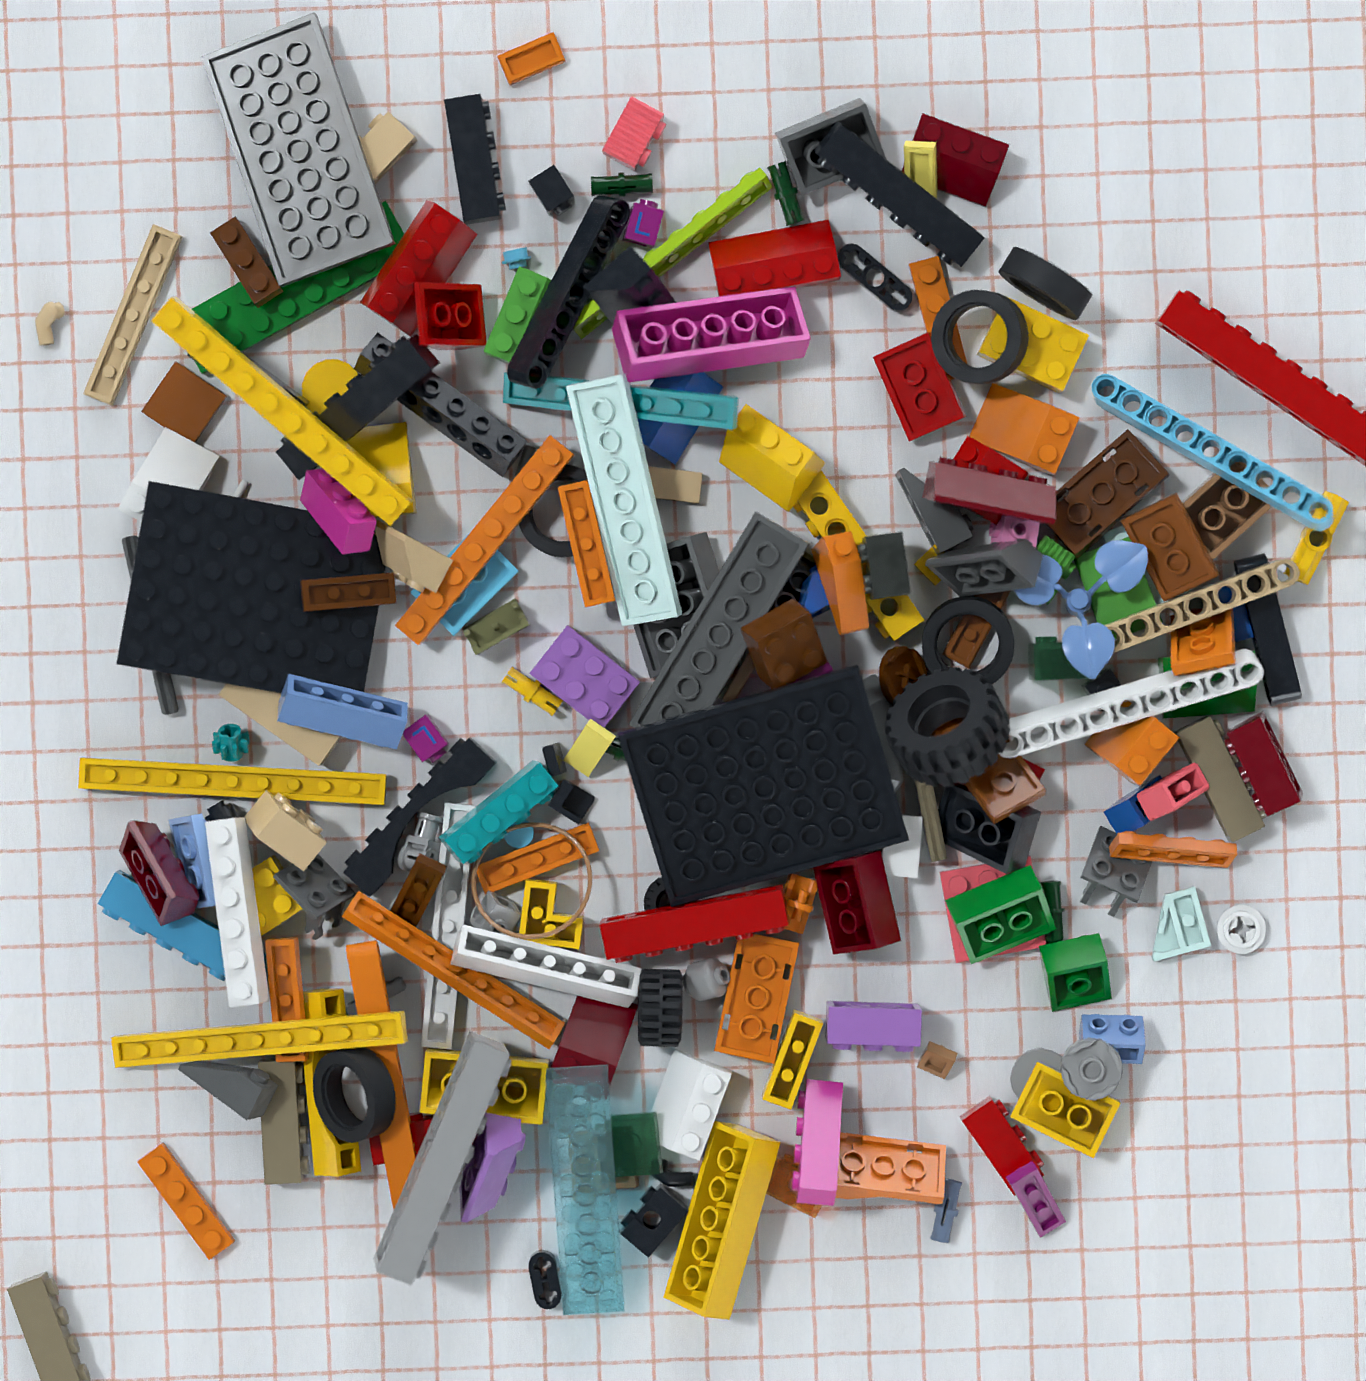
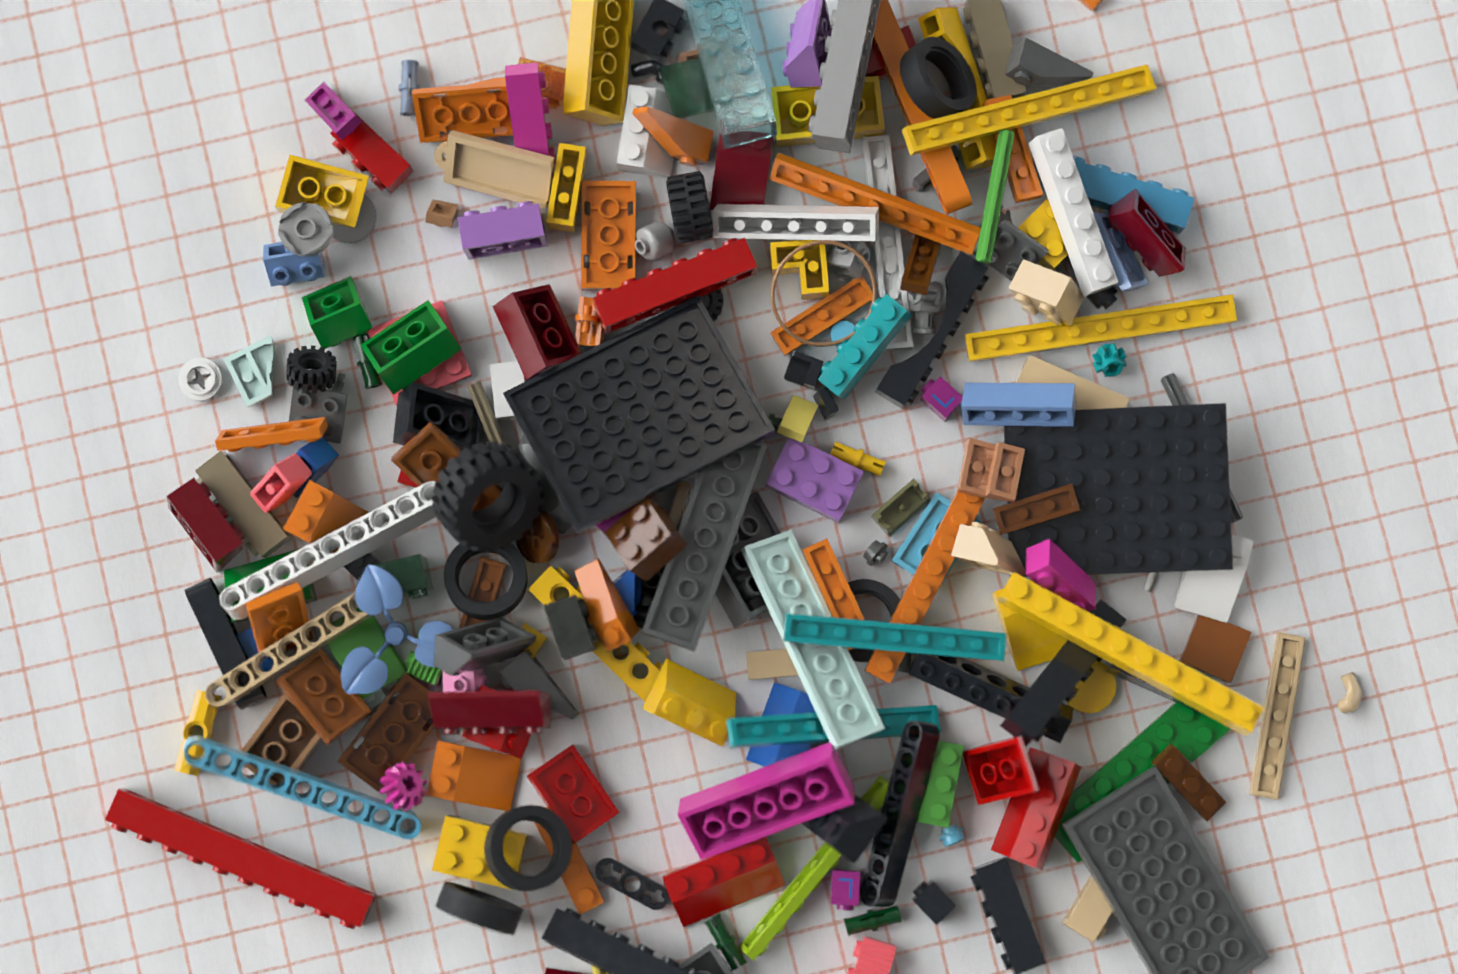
camera: 170 degrees right, 5 degrees down
(319, 948) = (995, 196): none -> bright green axle
(389, 645) = (990, 470): none -> nougat slope
(534, 482) = (894, 637): none -> teal plate
(534, 582) = (876, 553): none -> dark grey plate
(657, 1090) = (677, 136): none -> orange slope
(867, 1096) = (495, 168): none -> tan piece
(1101, 431) = (403, 786): none -> dark pink gear
(1119, 900) = (318, 379): none -> black tyre

